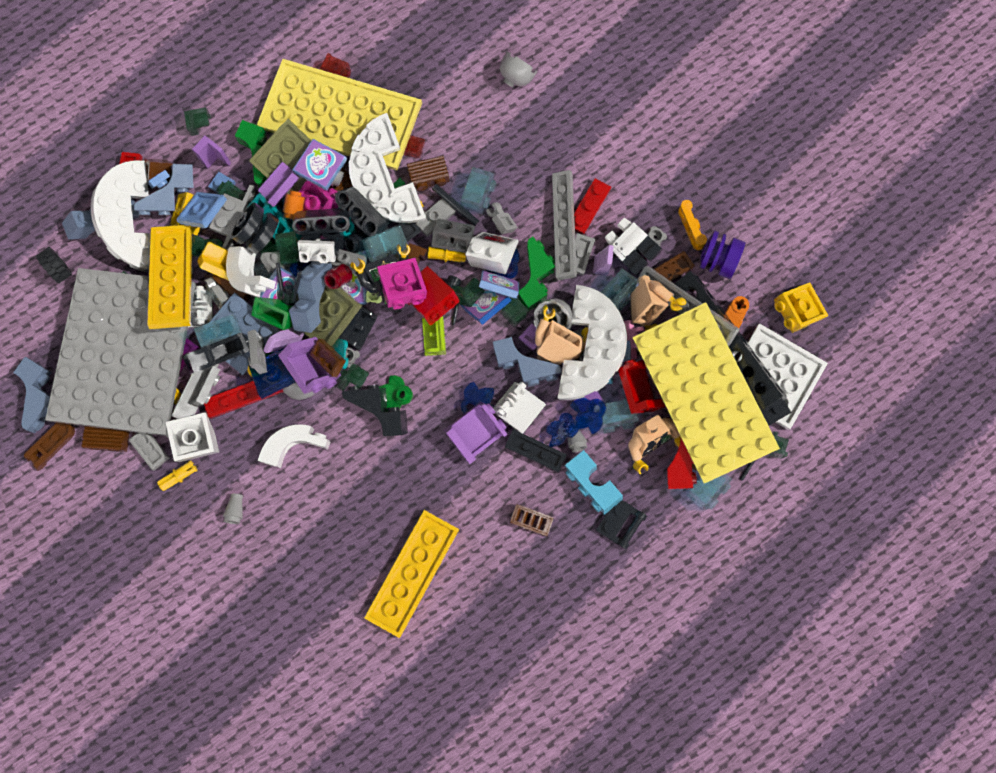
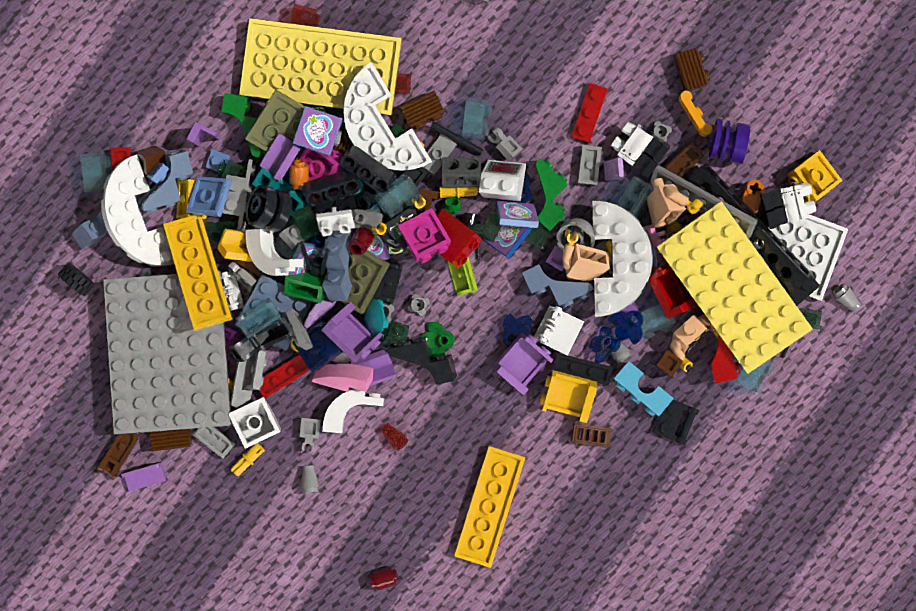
camera: 15 degrees left, 10 degrees up
(36, 399) = (97, 415): sand blue arch -> none
(69, 472) = (144, 476): none -> medium lavender panel
(99, 164) = (94, 171): none -> clear light blue brick
(196, 119) = (178, 100): clear green panel -> none
(246, 458) = (310, 429): none -> light grey plate
(286, 627) = (383, 578): none -> dark red brick
(293, 410) = (344, 376): none -> bright pink slope
(324, 408) = (381, 365): none -> medium lavender panel
(327, 357) = (368, 322): reddish brown plate -> none
(331, 483) = (395, 437): none -> clear red cone
(383, 350) = (415, 300): none -> light grey plate
(438, 266) = (452, 205): none -> green plate
(516, 473) = (569, 395): none -> yellow panel
(564, 225) = (568, 139): light grey plate -> none
(623, 461) = (668, 362): none -> reddish brown panel
(695, 183) = (691, 69): none -> reddish brown brick
(776, 321) = (786, 203): none -> hips
(816, 431) = (846, 297): none -> light grey cone

